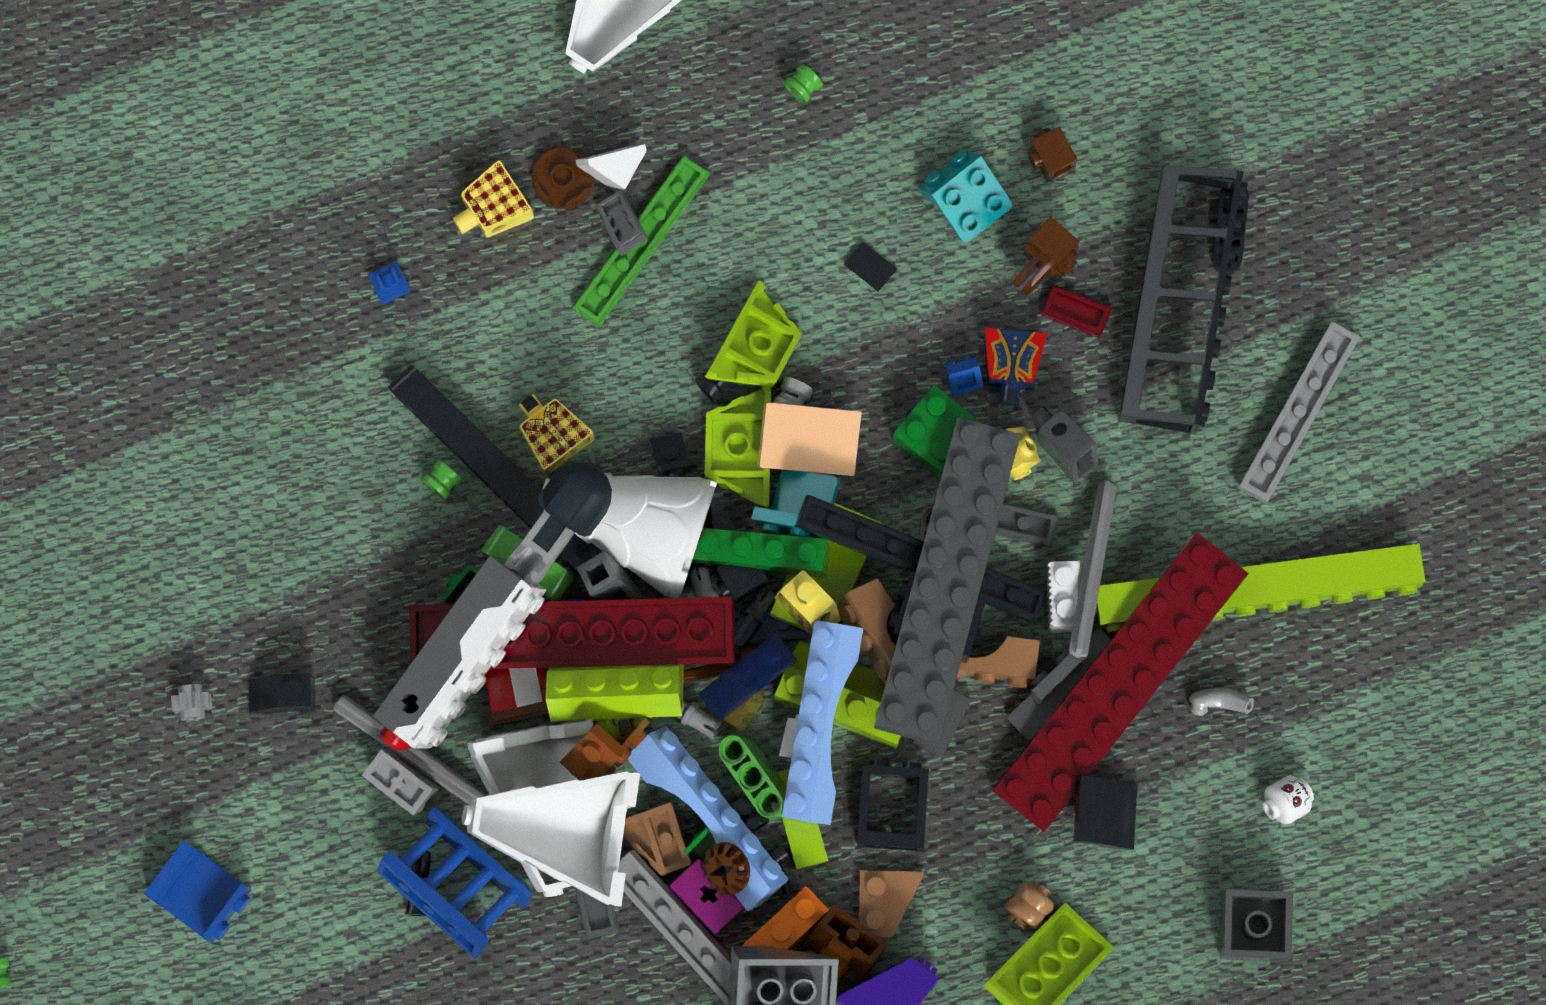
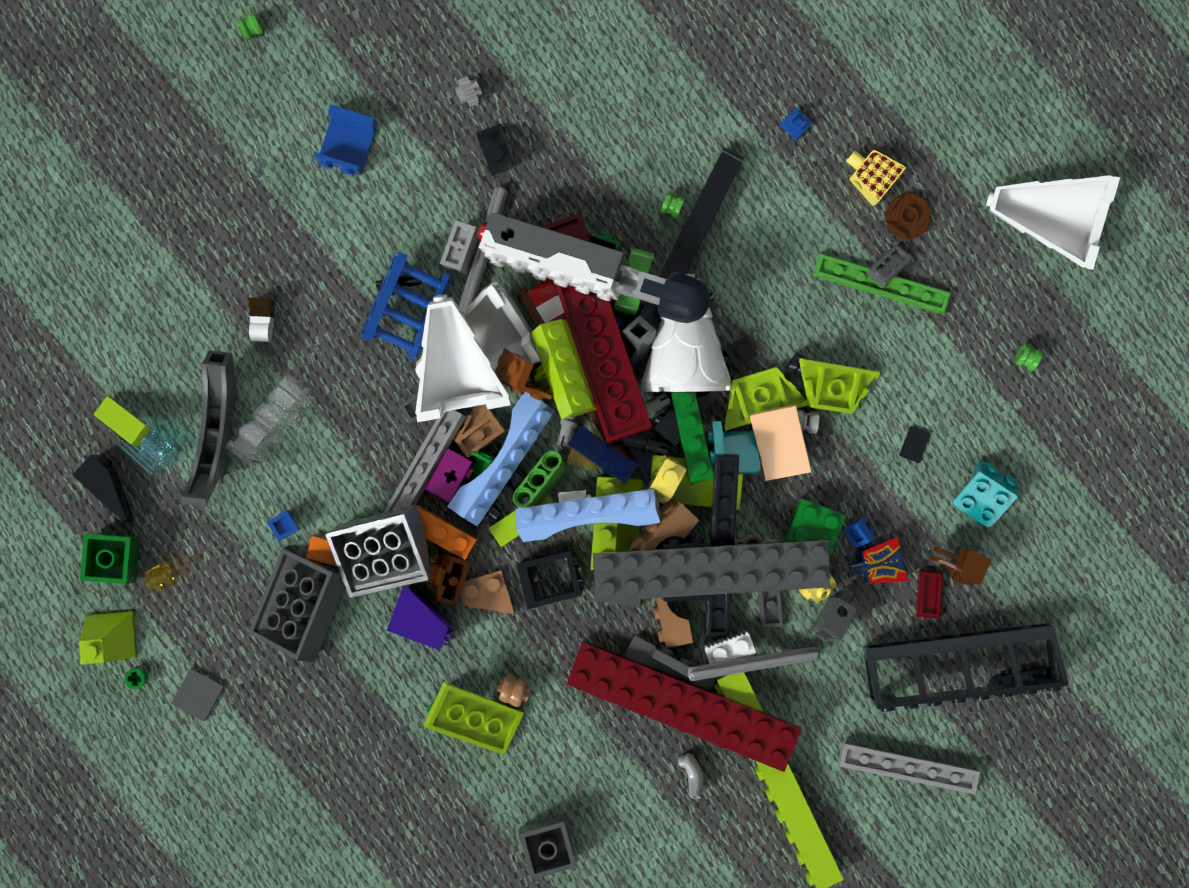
camera: 65 degrees right, 10 degrees up
(552, 432) = (728, 268): torso -> none
(615, 166) = (927, 248): white slope -> none
(723, 855) = (476, 483): reddish brown gear -> none
(1051, 153) = (1035, 543): reddish brown brick -> none
(1105, 812) = (591, 721): black slope -> none
(1288, 799) = (640, 841): white head -> none

